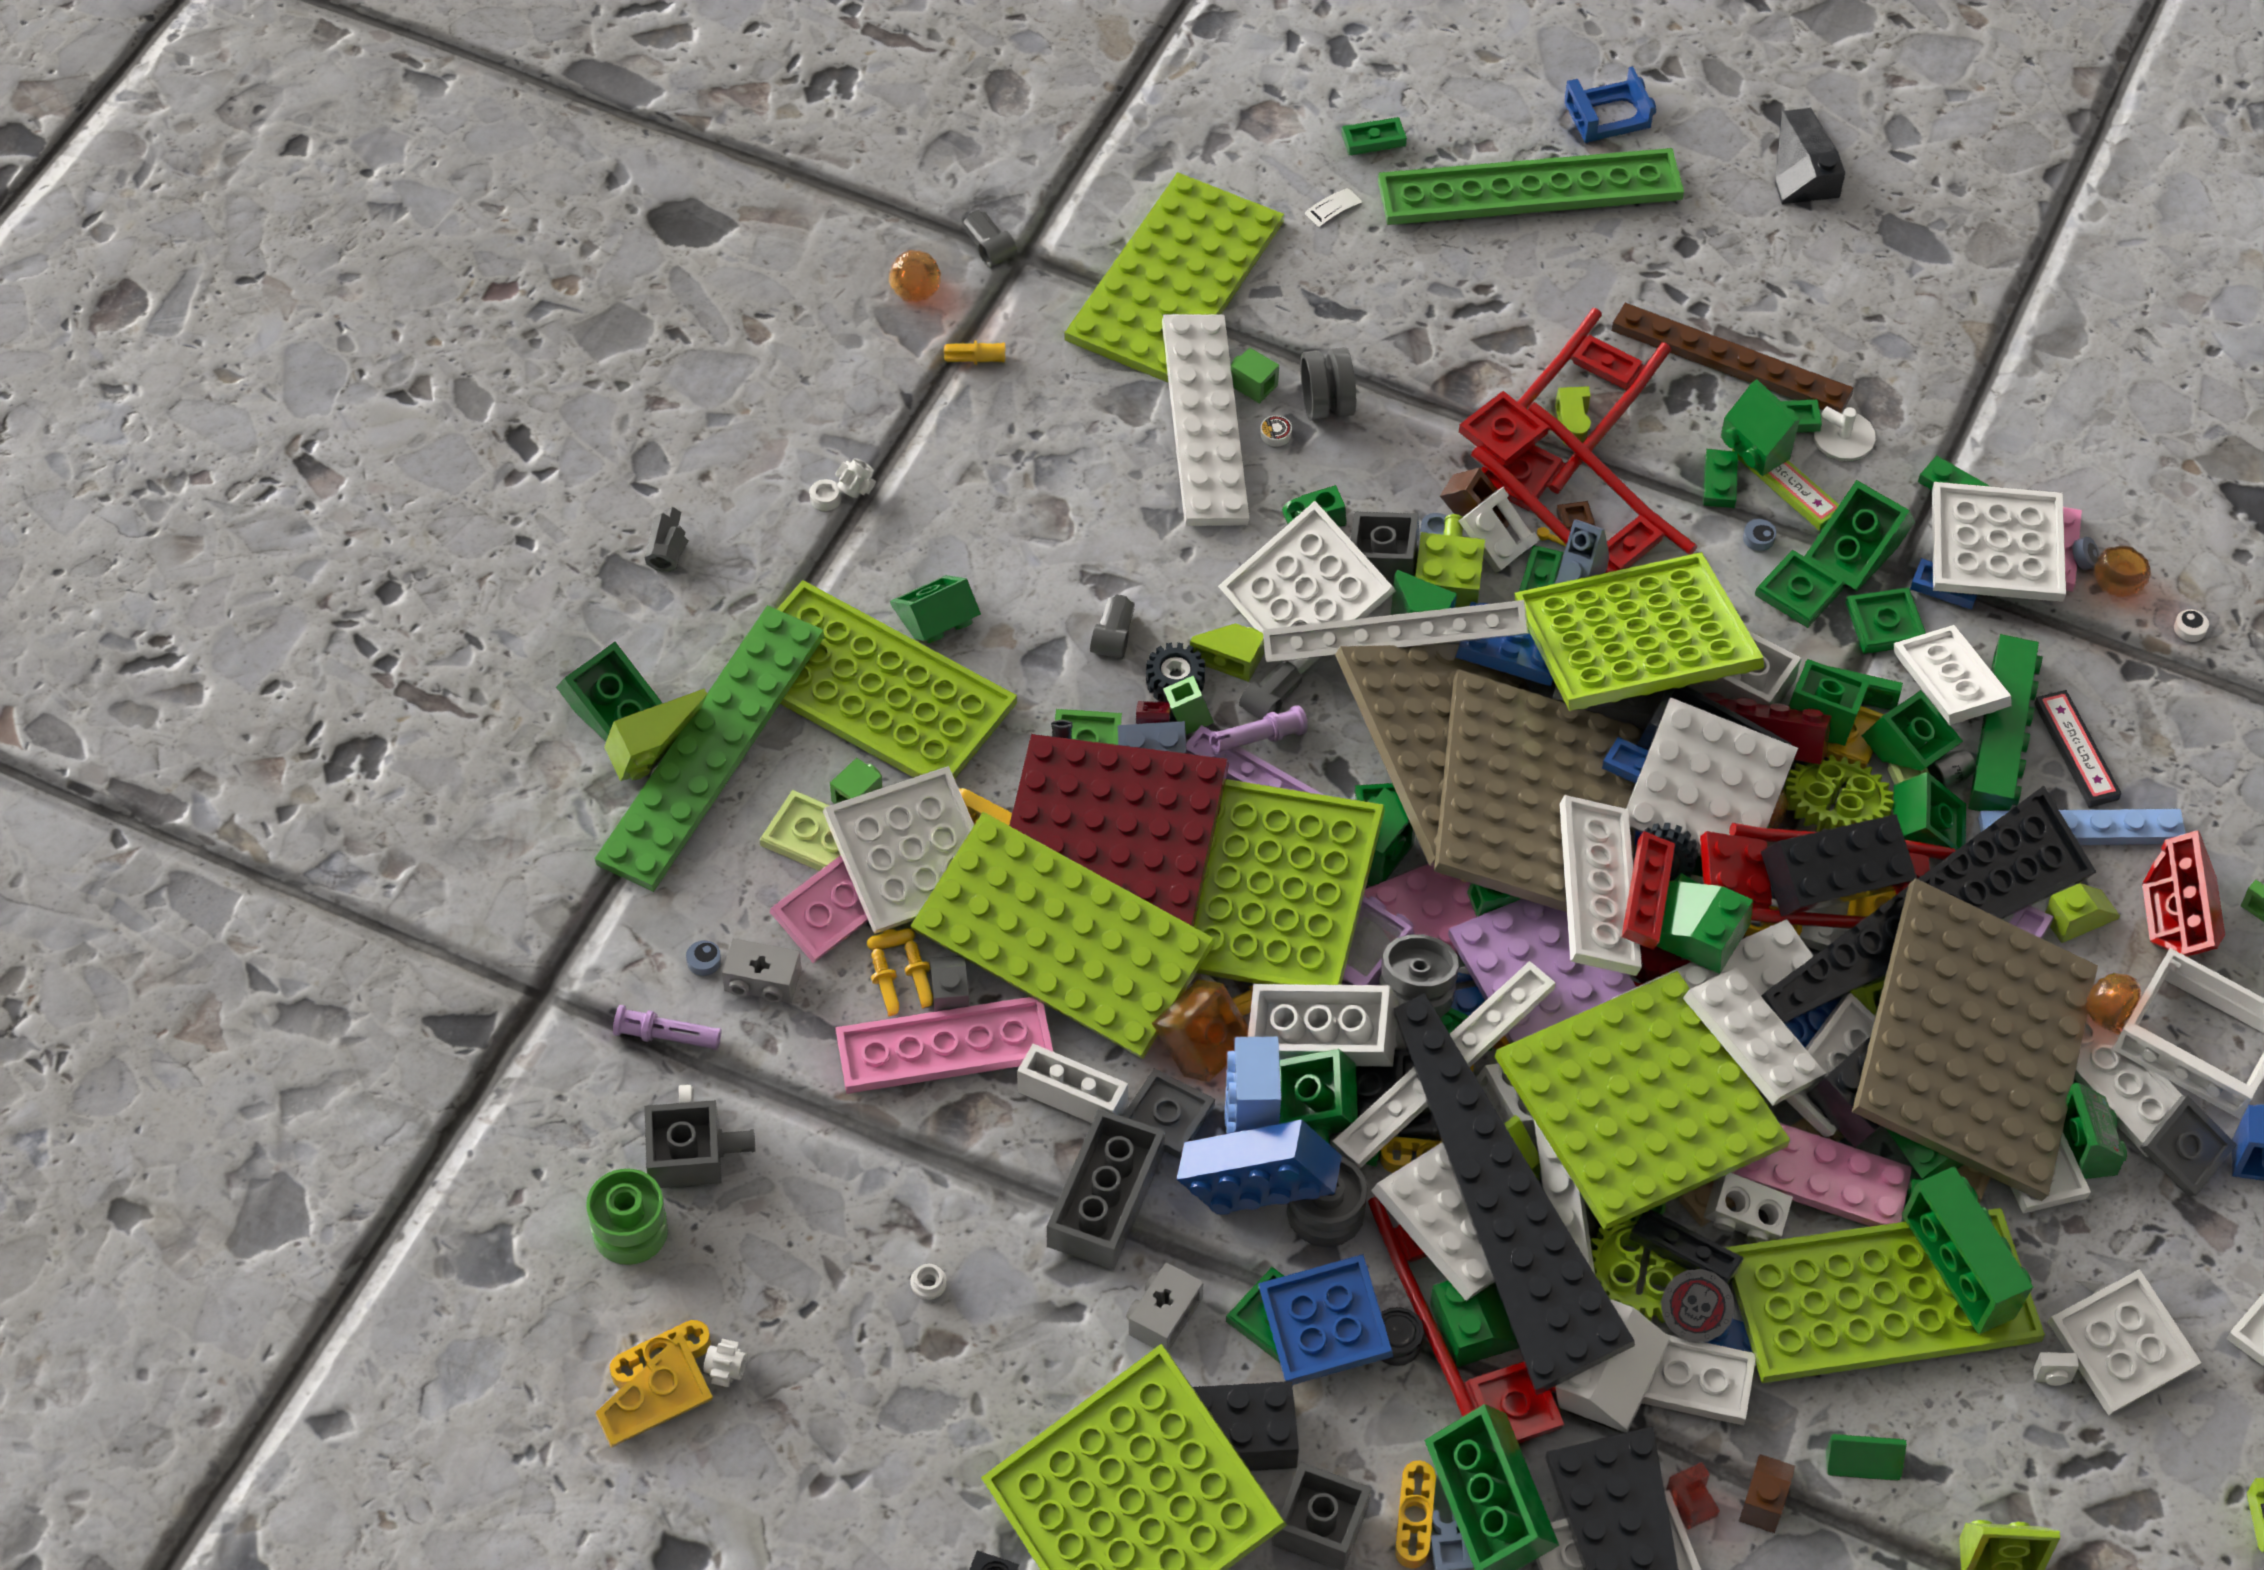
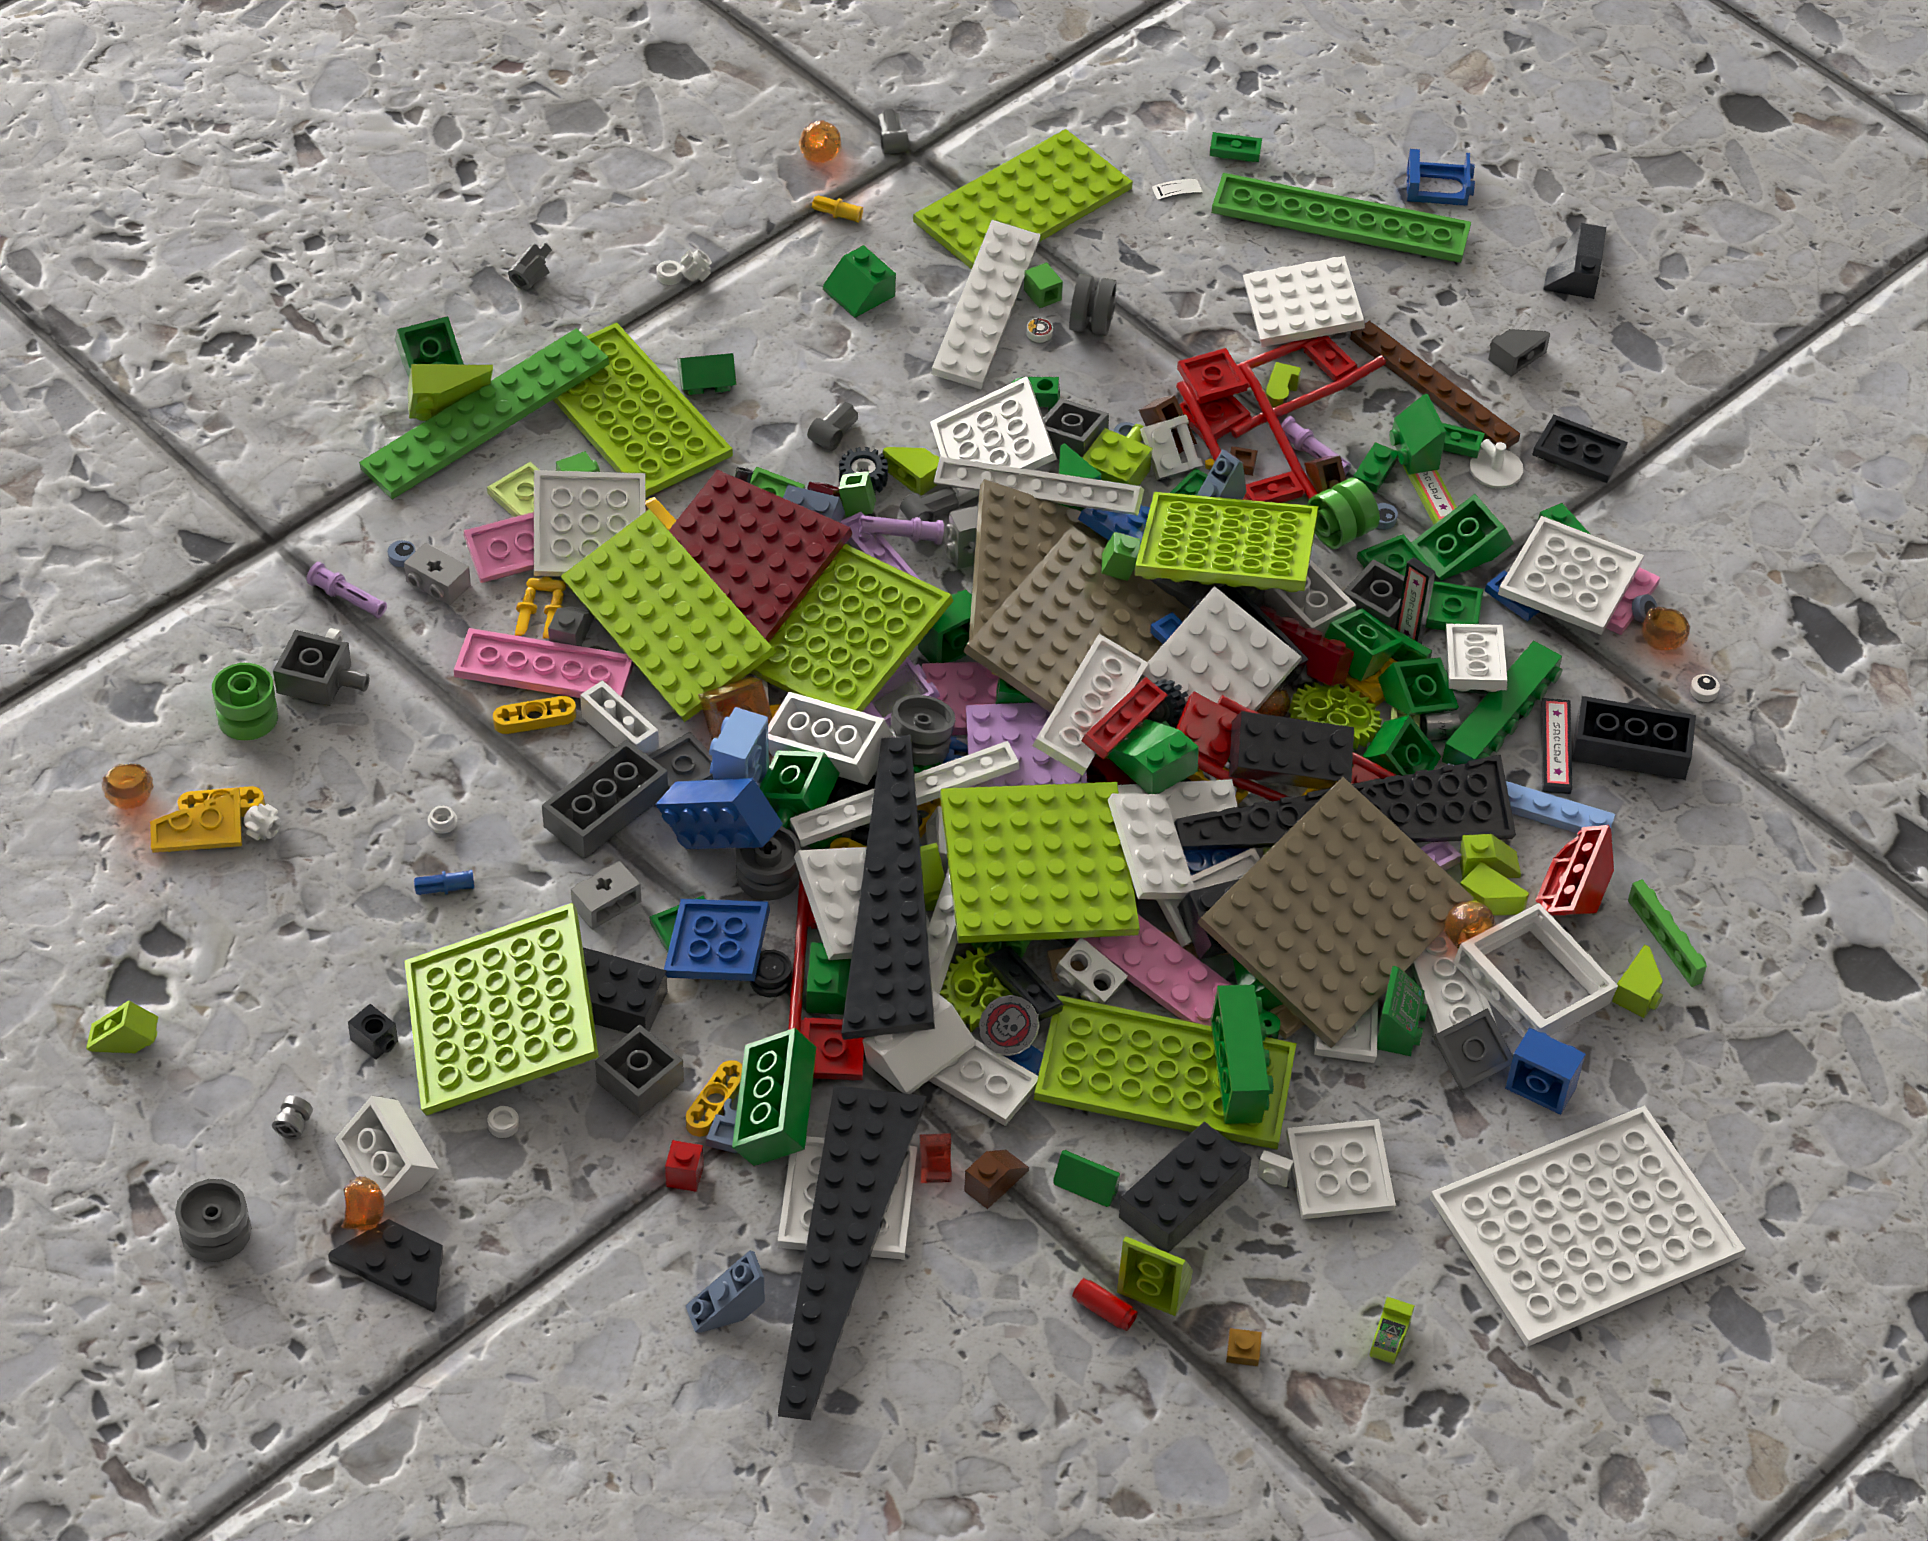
camera: 20 degrees right, 5 degrees down
(542, 1374) = (127, 785): none -> clear orange hair
(973, 1360) = (444, 882): none -> blue axle
(990, 1104) = (513, 711): none -> yellow beam
(1051, 437) = (860, 282): none -> green slope
(1338, 719) = (962, 536): none -> light grey brick
(1533, 689) = (1120, 556): none -> bright green brick
(1547, 303) = (1303, 301): none -> white plate
(1632, 472) = (1304, 441): none -> lavender pin
(1686, 511) = (1325, 472): none -> reddish brown slope
(1731, 544) = (1345, 513): none -> bright green wheel
(1797, 286) = (1517, 349): none -> dark grey slope
(1816, 632) = (1377, 592): none -> dark grey brick
(1871, 633) = (1415, 599): none -> tile
(1922, 384) = (1580, 448): none -> black plate
(1976, 1428) = (1185, 1187): none -> black brick
(2109, 947) = (1495, 891): none -> lime slope
(2158, 713) = (1633, 737): none -> black brick

